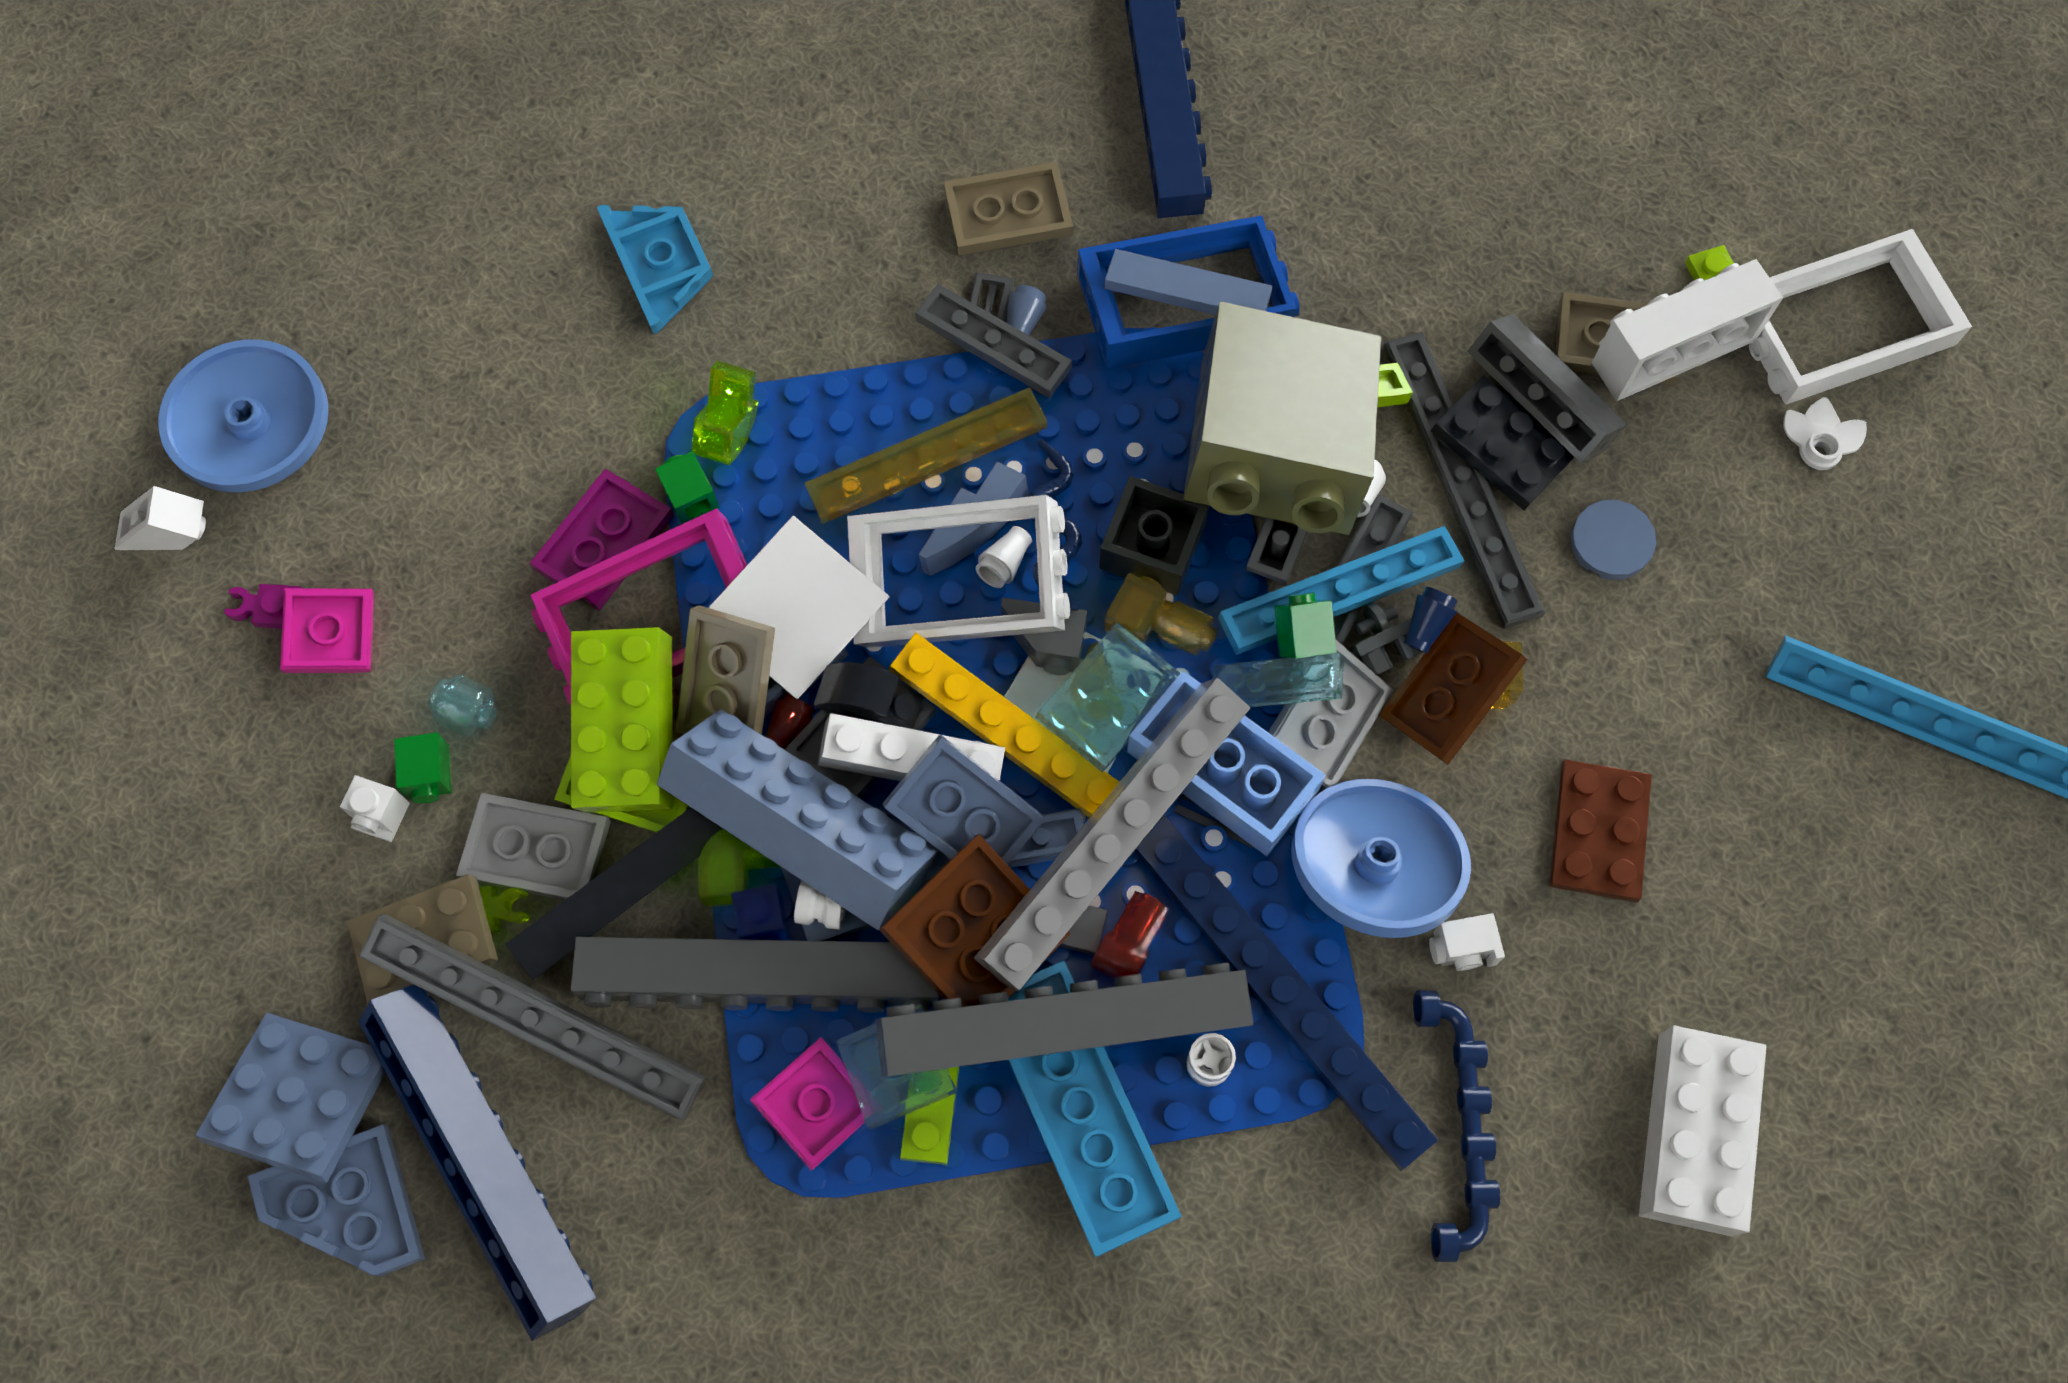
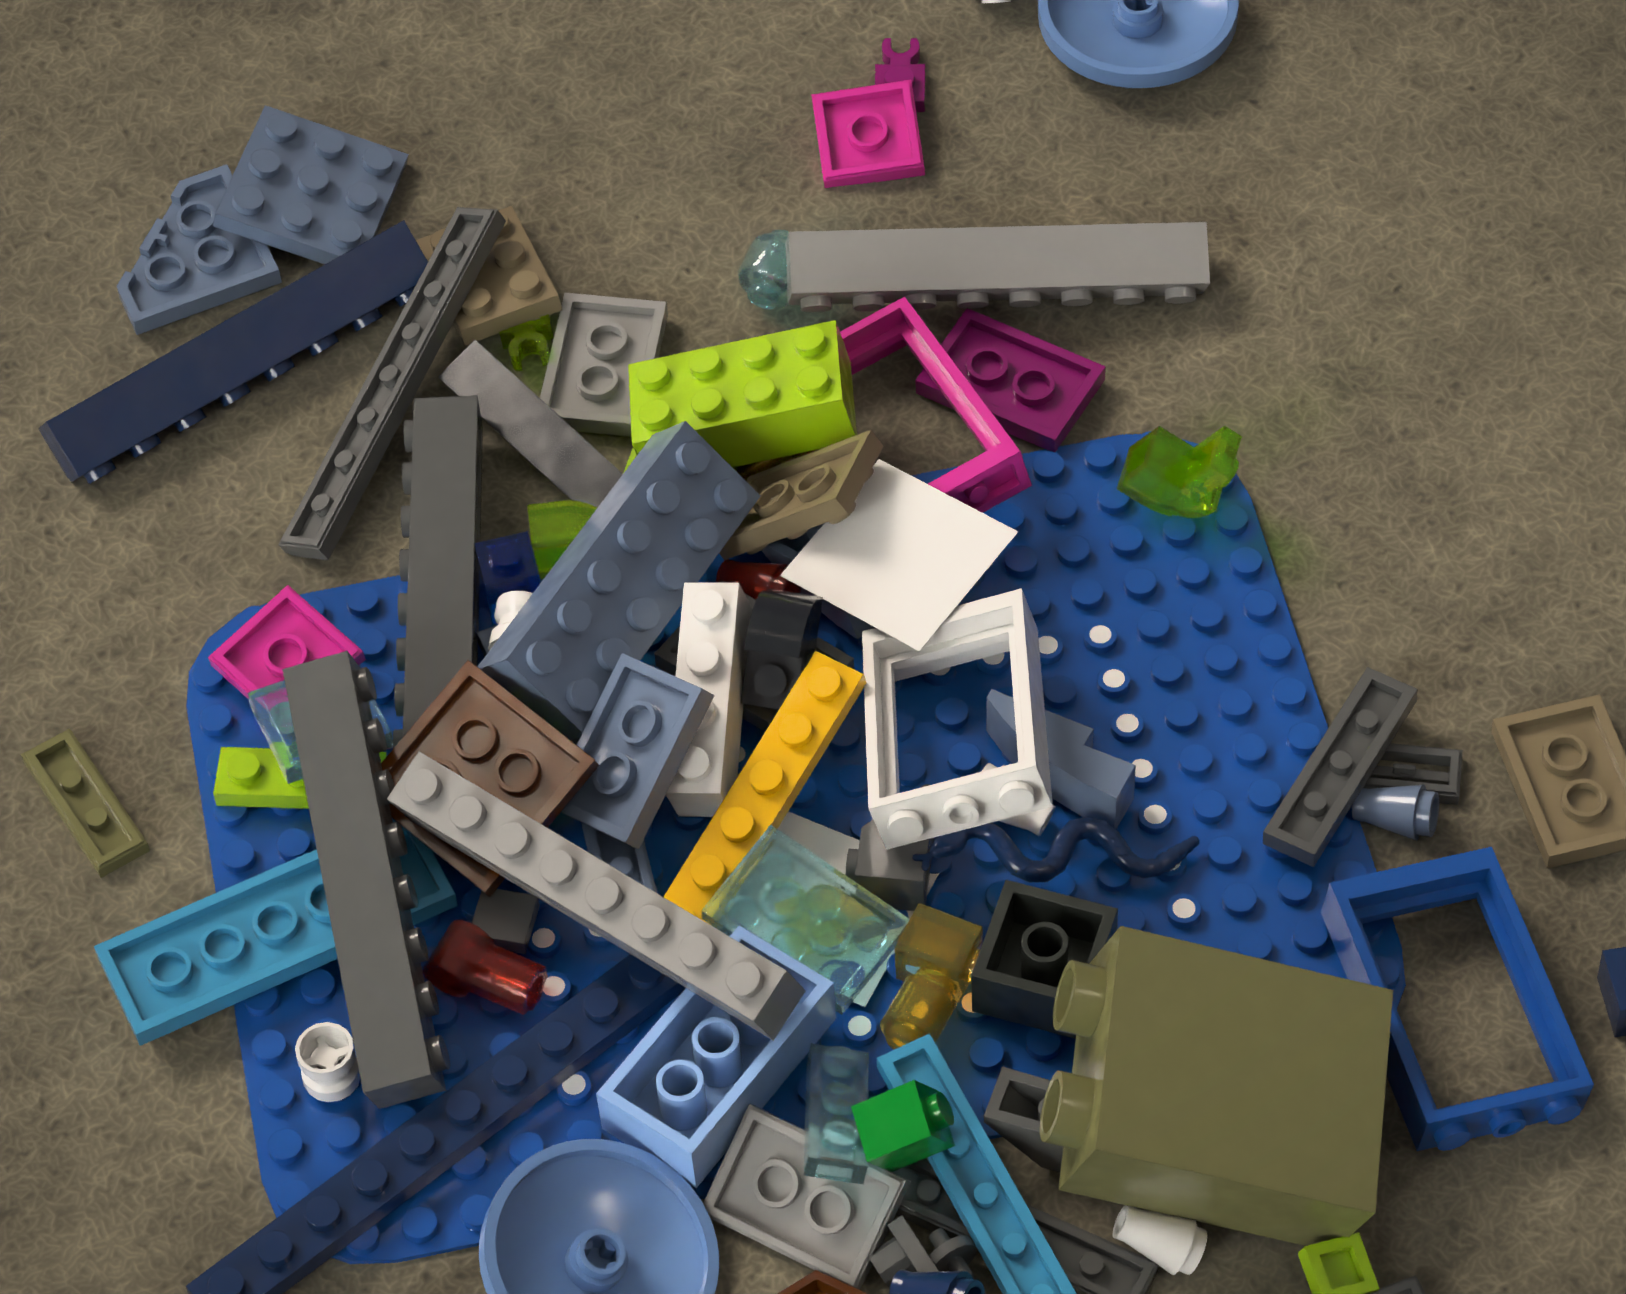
camera: 90 degrees right, 15 degrees down
(374, 808) = (645, 206): white brick -> none
(422, 767) = (696, 245): green brick -> none
(499, 537) = (997, 265): none -> light grey brick
(658, 258) = (1428, 390): dark azure wing -> none
(686, 487) = (1077, 446): green brick -> none
(926, 455) = (1156, 705): clear yellow plate -> none
(928, 1282) = (85, 803): none -> olive tile
(1182, 284) = (1437, 977): sand blue tile -> none

